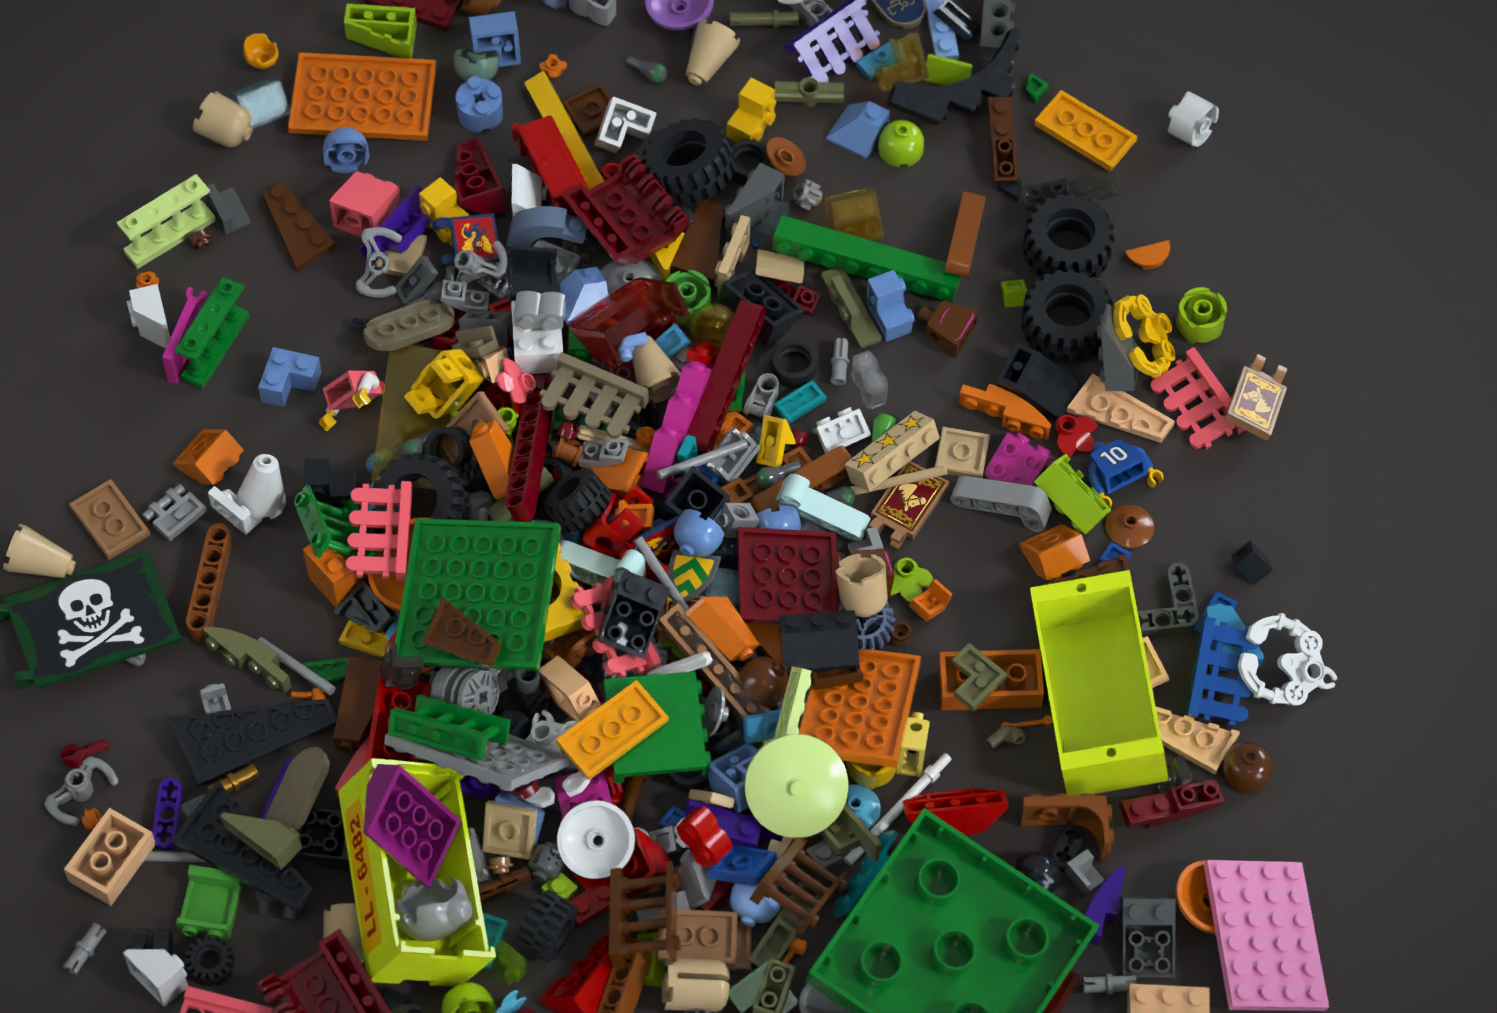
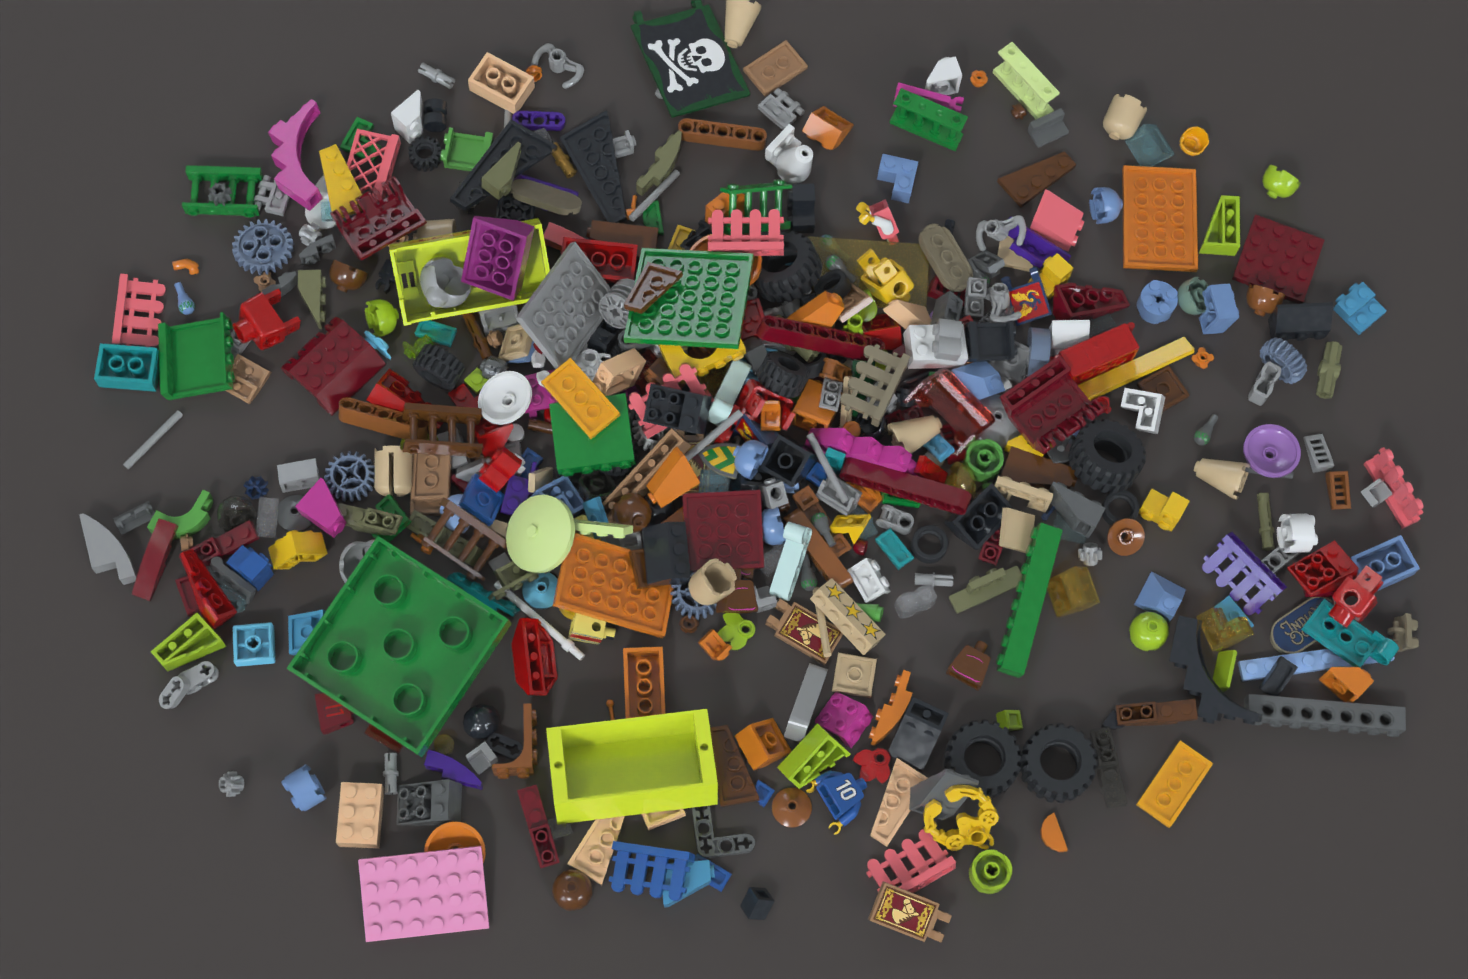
camera: 85 degrees right, 10 degrees up
(73, 755) = (585, 61): dark red bar -> none
(400, 671) = (632, 245): clear smoke bracket -> none
(449, 727) = (567, 280): green fence -> none
(476, 341) = (924, 302): dark tan bracket -> none
(515, 381) = (887, 326): coral plate -> none
(568, 430) = (847, 368): dark red hinge -> none
(629, 343) = (929, 412): light blue arm -> none
(684, 665) = (639, 449): white axle -> none
(715, 710) = (606, 479): light grey dish -> none
(809, 92) = (1193, 545): olive piece -> none
(887, 305) = (987, 615): medium blue brick -> none
(965, 234) = (1056, 677): dark orange beam -> none
(982, 674) = (639, 676): olive plate -> none
(1008, 734) = (602, 702): dark tan arm -> none
(1035, 87) = (1217, 744): green tile -> none
(1192, 119) = (1189, 873): white brick -> none
(1308, 646) = (643, 934): white piece -> none

